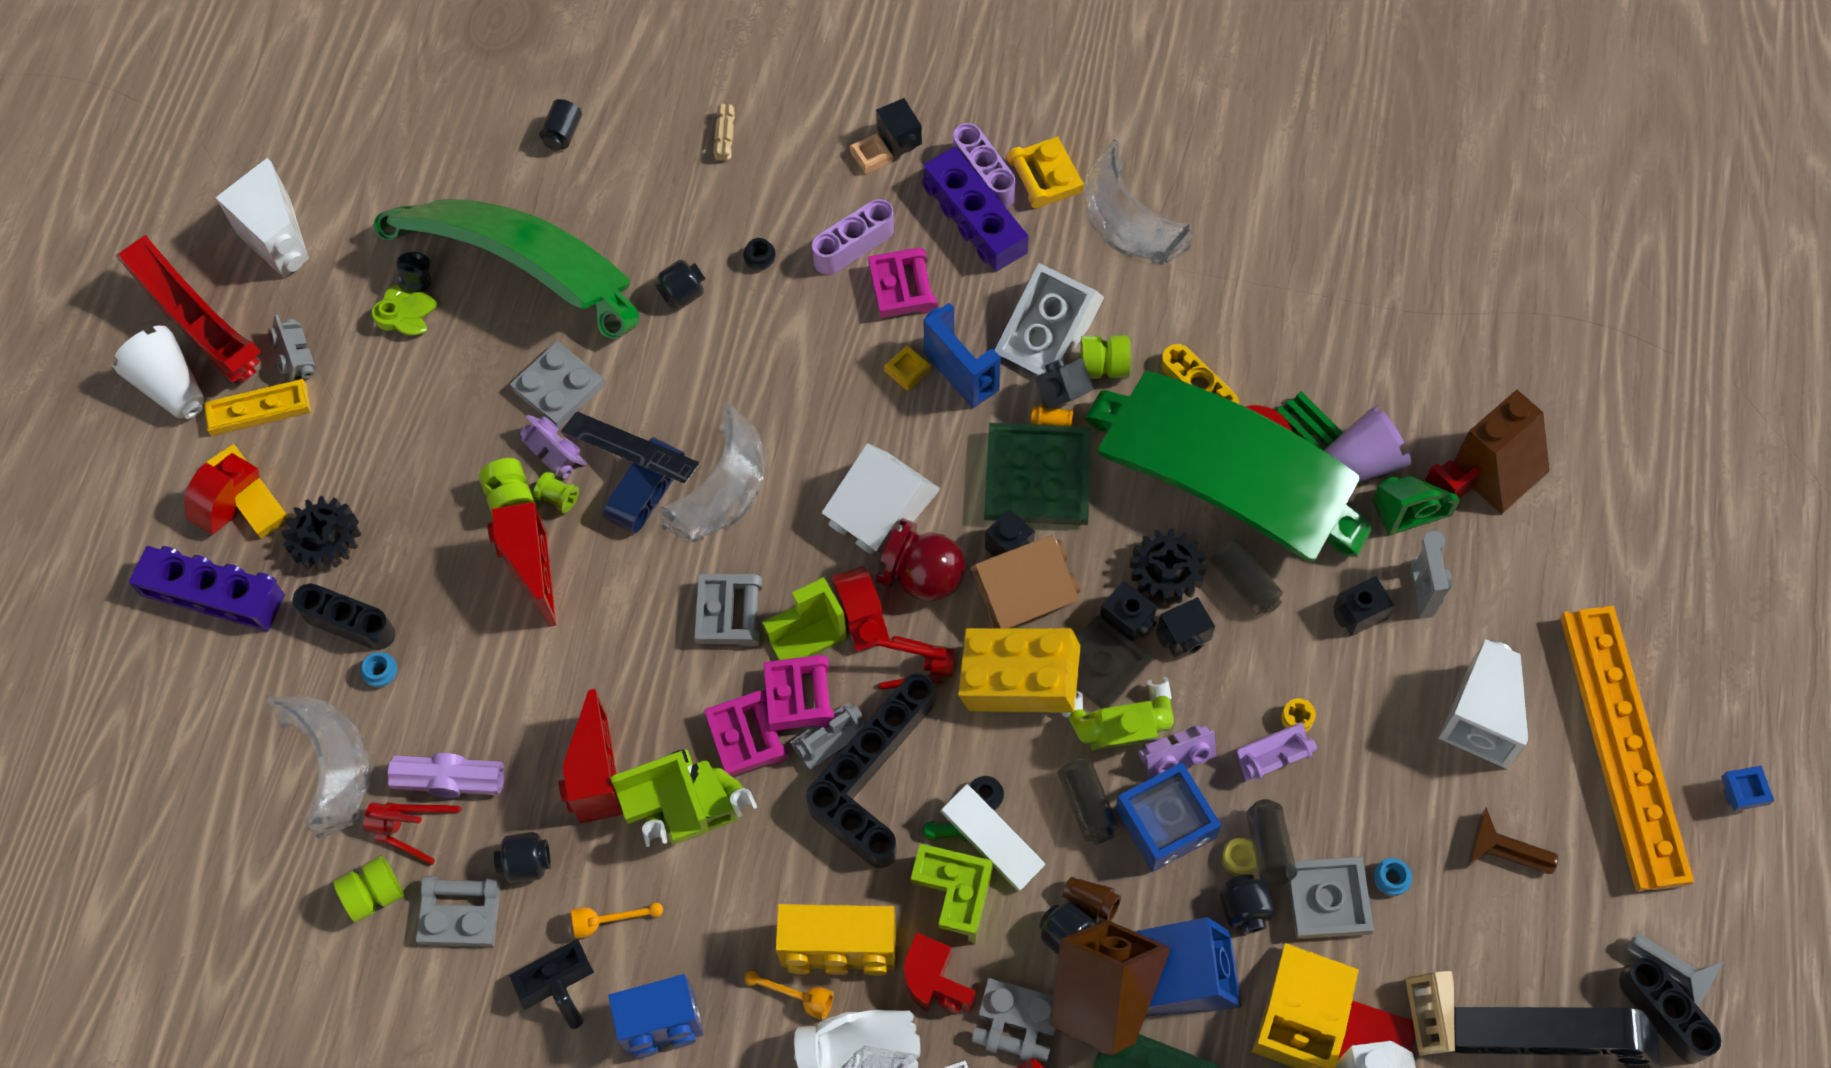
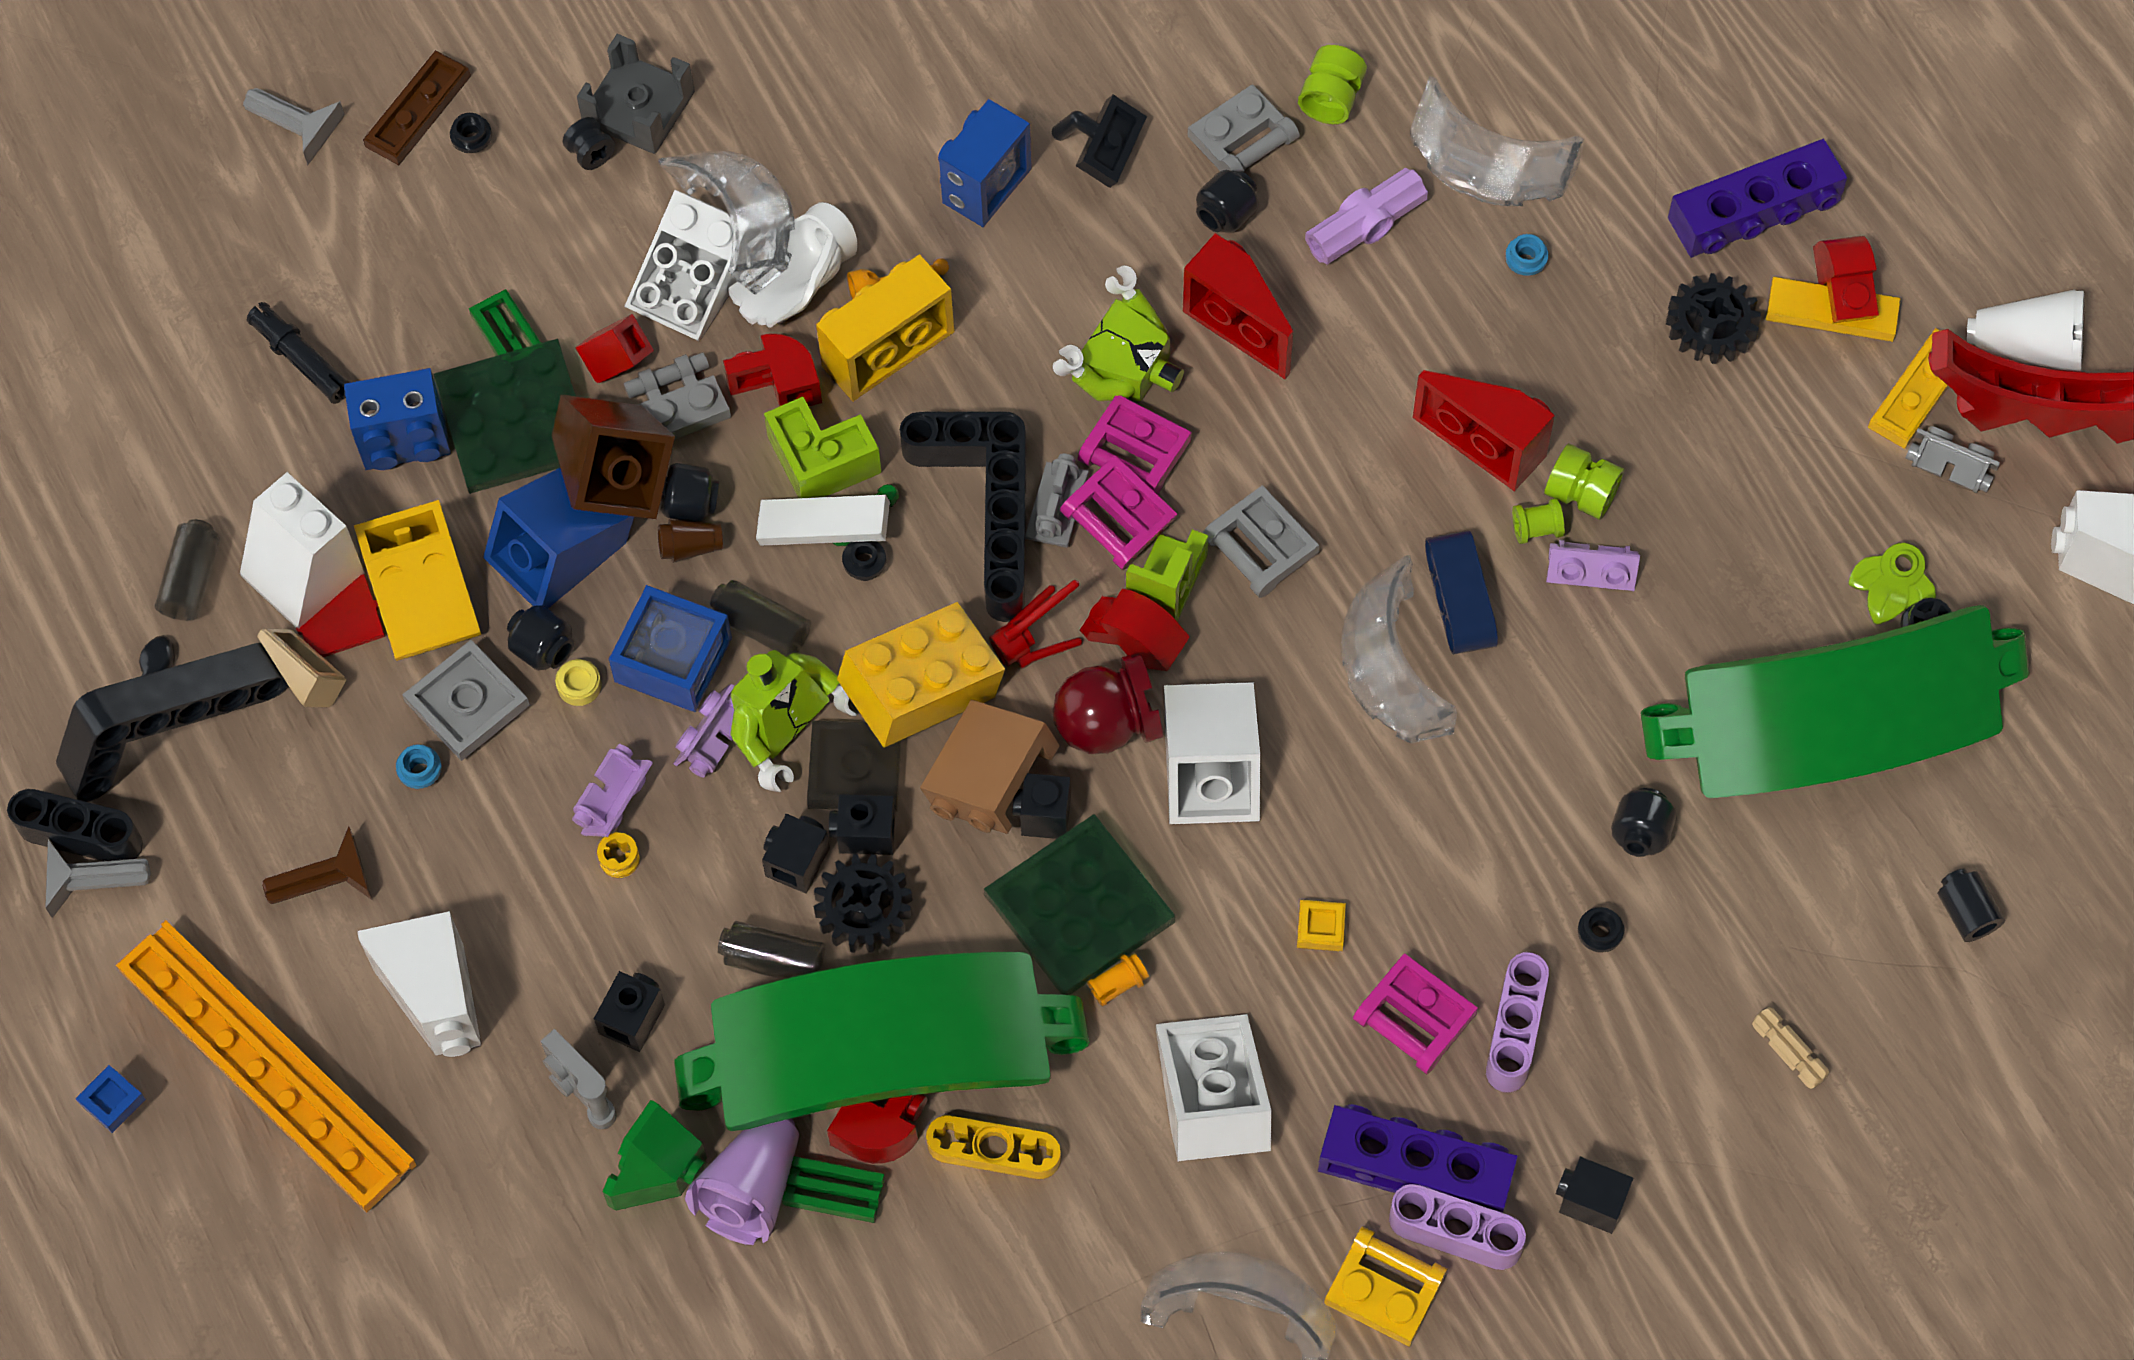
camera: 140 degrees right, 0 degrees up
(333, 605) = (1619, 253): black beam -> none
(387, 819) = (1378, 146): red plant -> none
(557, 384) = (1657, 631): light grey plate -> none
(587, 921) = (1123, 200): light orange hinge -> none
(631, 447) = (1508, 606): black sticker -> none
(662, 787) = (1143, 326): lime panel -> none
(871, 153) = (1606, 1148): light nougat tile -> none
(971, 377) = (1267, 944): blue panel -> none
(1063, 382) = (1130, 1007): black brick -> none
(1107, 356) = (1106, 1097): lime wheel -> none
(1271, 842) = (555, 700): clear smoke brick -> none
(1452, 478) = (632, 1228): red panel -> none
(1507, 451) = (592, 1289): reddish brown slope -> none

